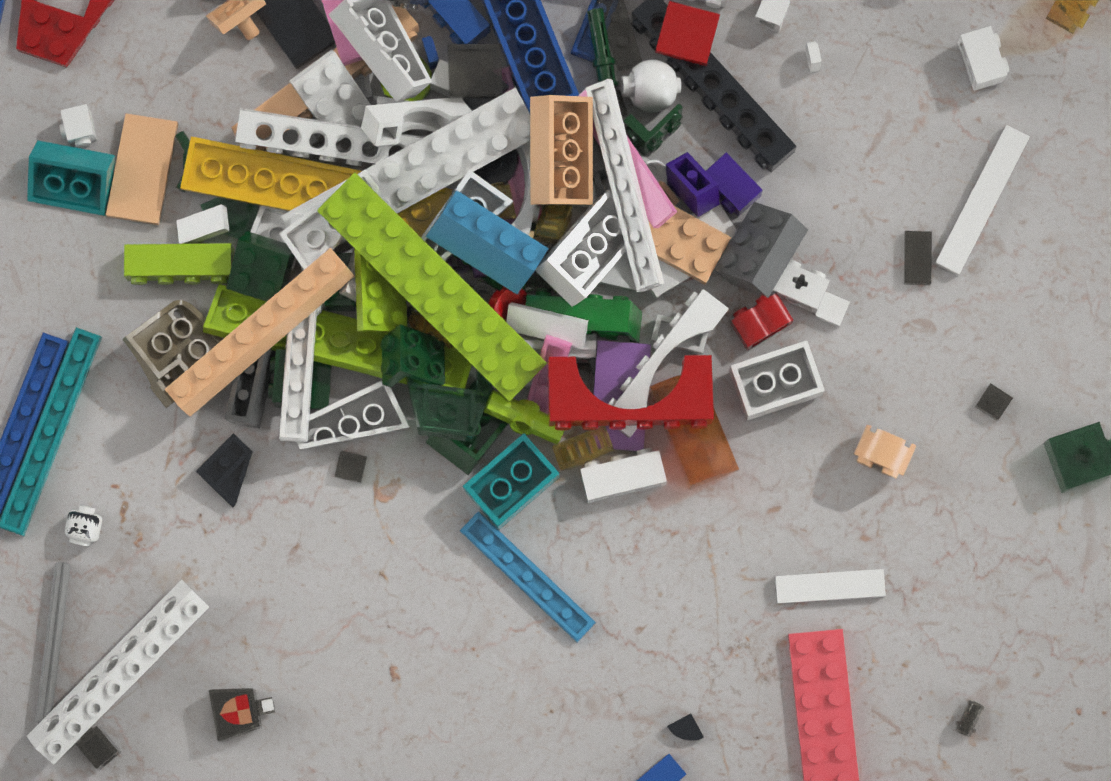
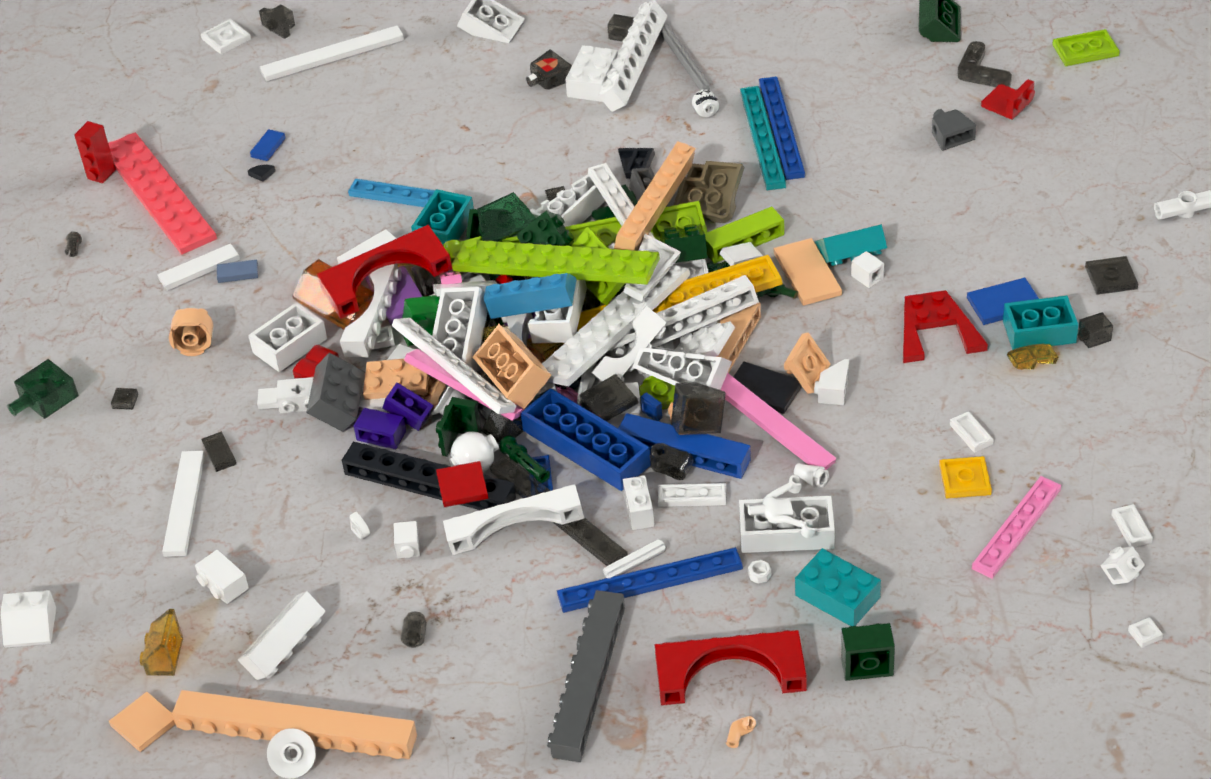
camera: 155 degrees right, 35 degrees down
(187, 670) = (589, 72): none -> white brick
(787, 551) = (237, 271): none -> sand blue tile

